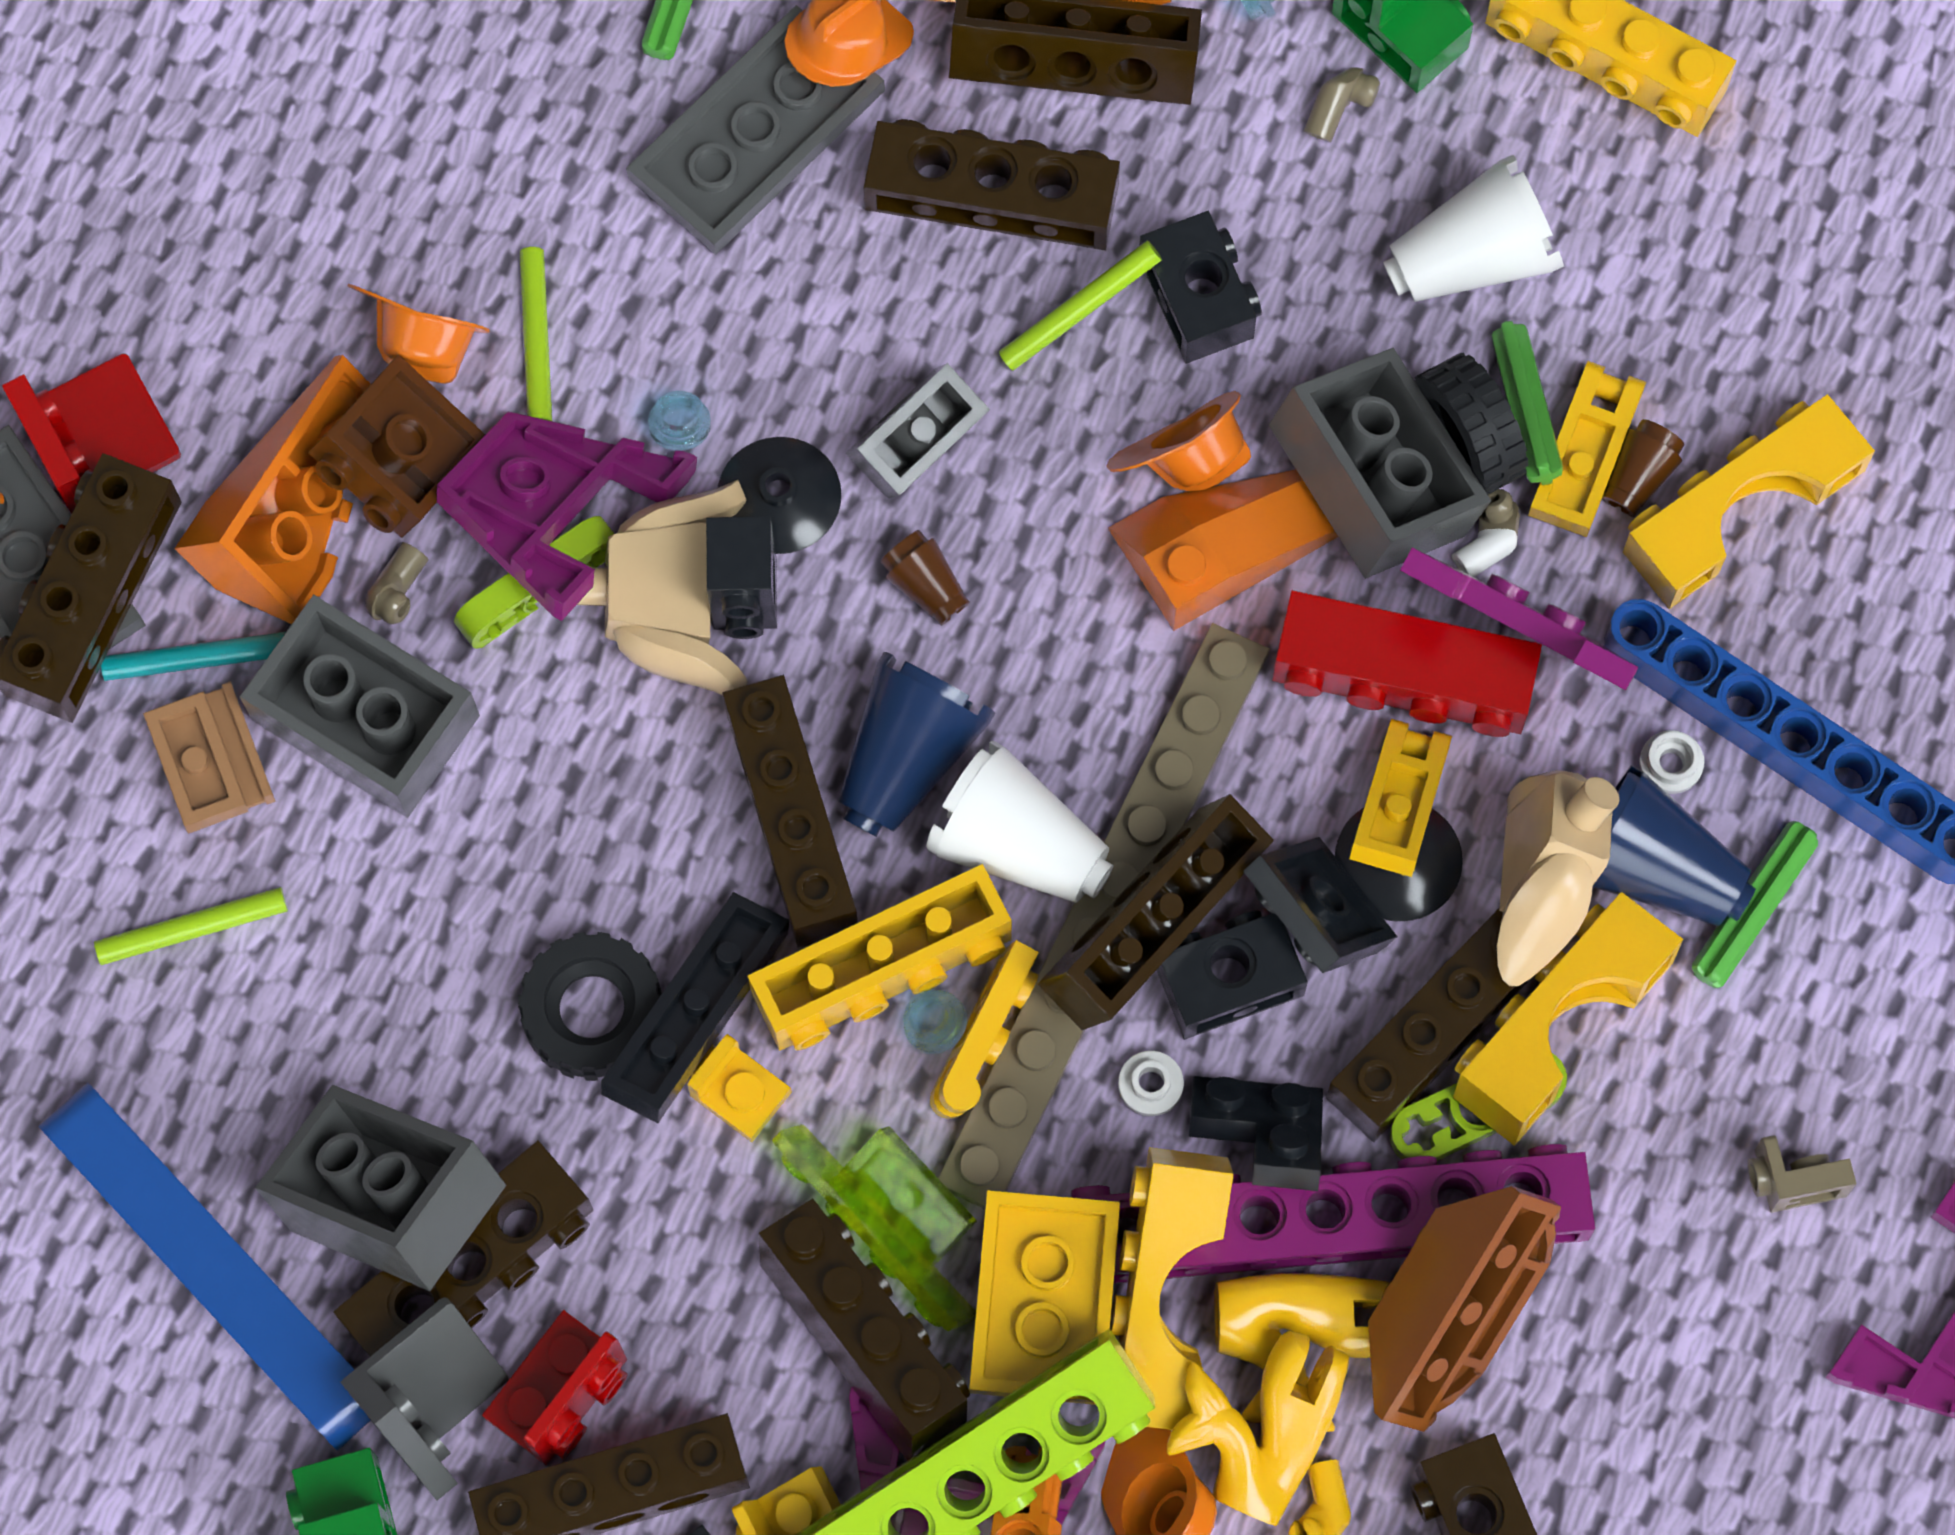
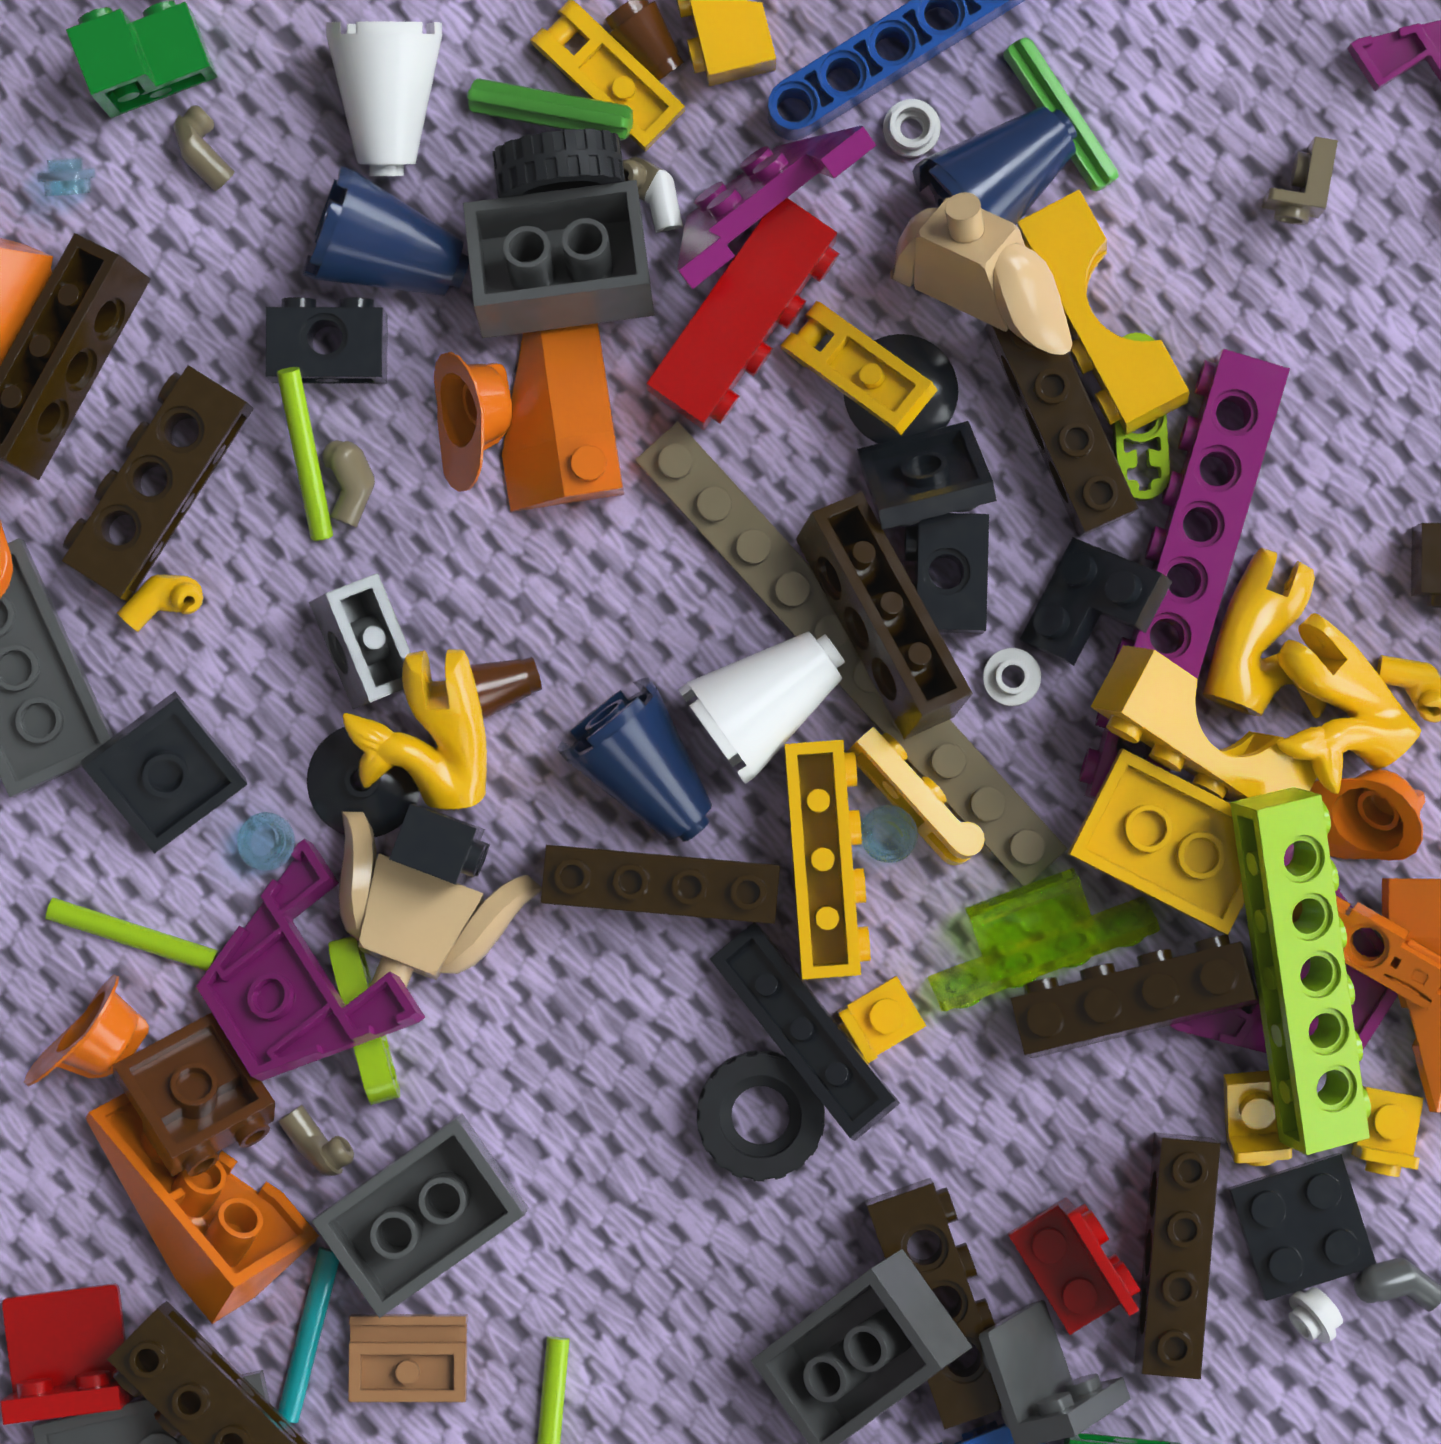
camera: 65 degrees left, 15 degrees up
(709, 298) = (164, 772): none -> black plate
(882, 527) = (452, 714): none -> yellow piece
(884, 232) = (161, 593): none -> yellow arm
(1077, 366) = (354, 478): none -> dark tan arm
(1320, 288) = (382, 242): none -> dark blue cone
(1456, 1301) = (1308, 515): dark orange wedge -> none

